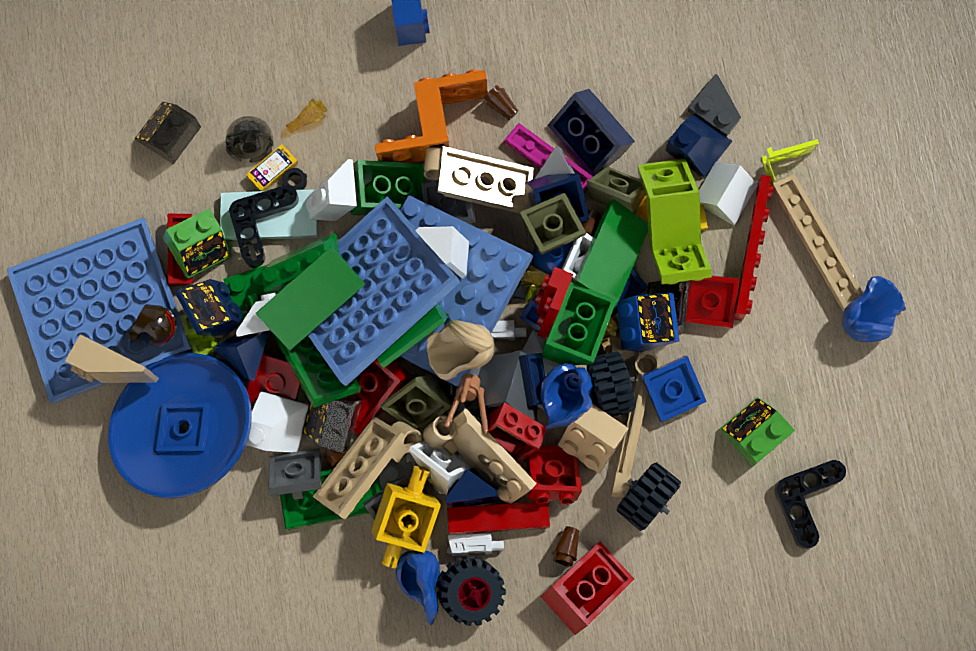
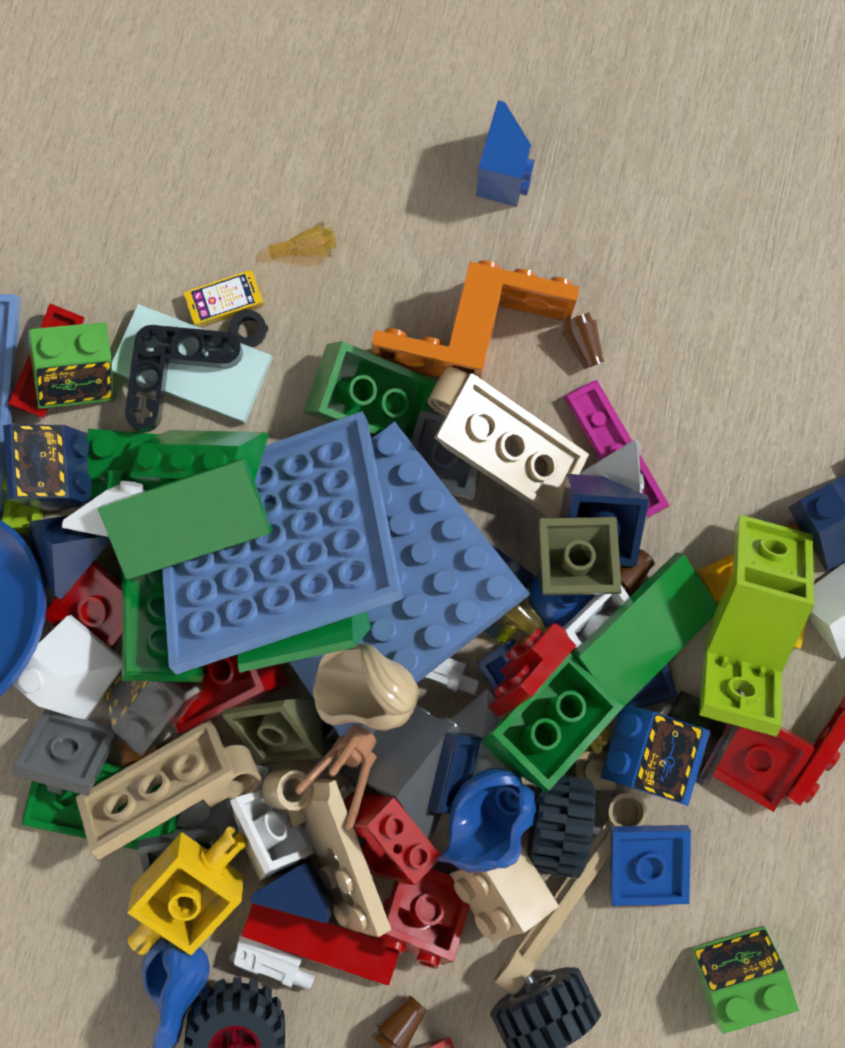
camera: 20 degrees right, 5 degrees up
(169, 131) = (104, 186): clear smoke slope -> none
(249, 138) = (208, 243): clear smoke cylinder -> none
(333, 195) = (289, 375): white slope -> none
(448, 245) = (410, 533): white slope -> none
(590, 132) = (693, 437): dark blue slope -> none
(615, 185) = (697, 534): olive slope -> none

